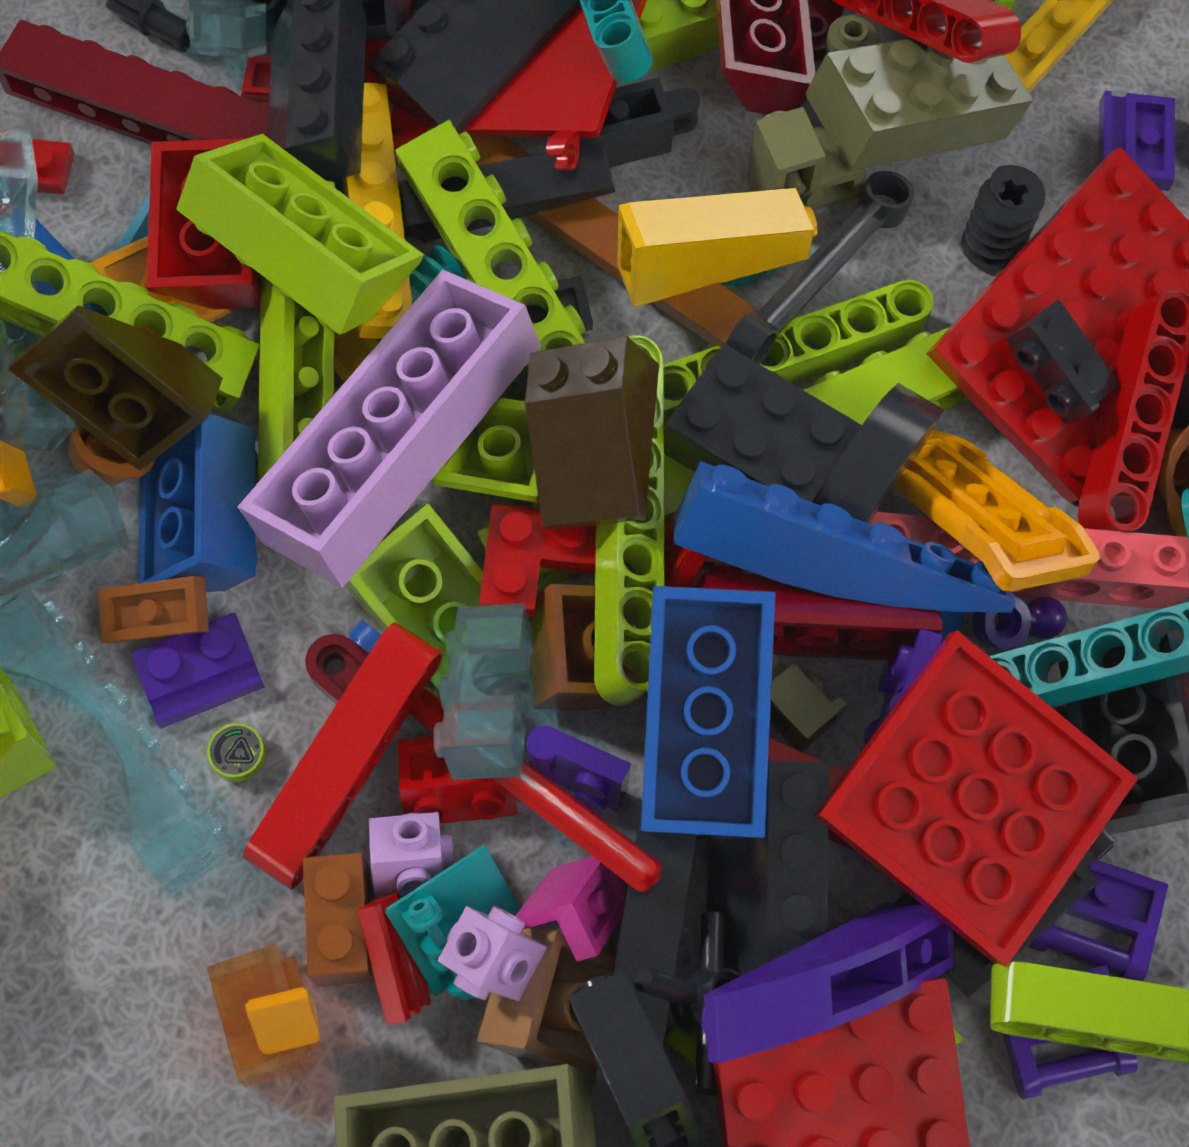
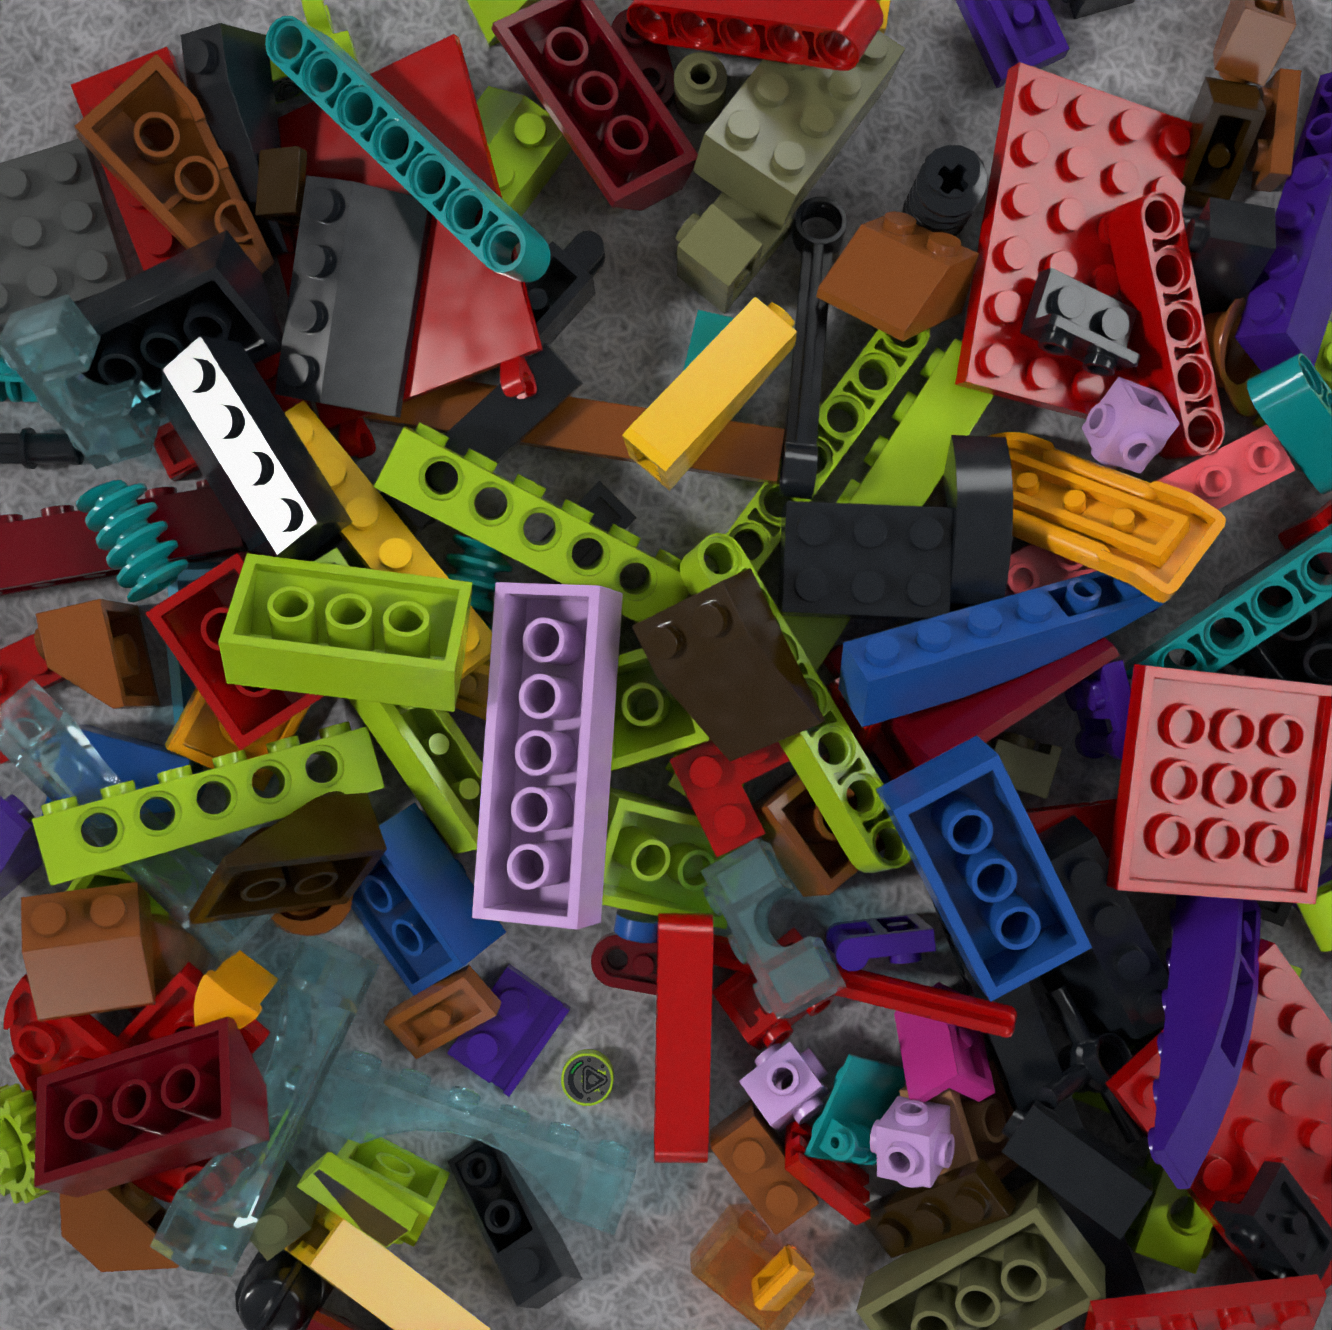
camera: 25 degrees left, 20 degrees up
(78, 841) = (514, 1226): none -> black slope
(97, 165) = (100, 651): none -> dark orange slope
(182, 91) = (131, 538): none -> teal piece
(476, 1045) = (953, 1205): none -> dark brown plate
(931, 250) = (900, 276): none -> dark orange slope
(1060, 466) = (1129, 426): none -> lavender brick

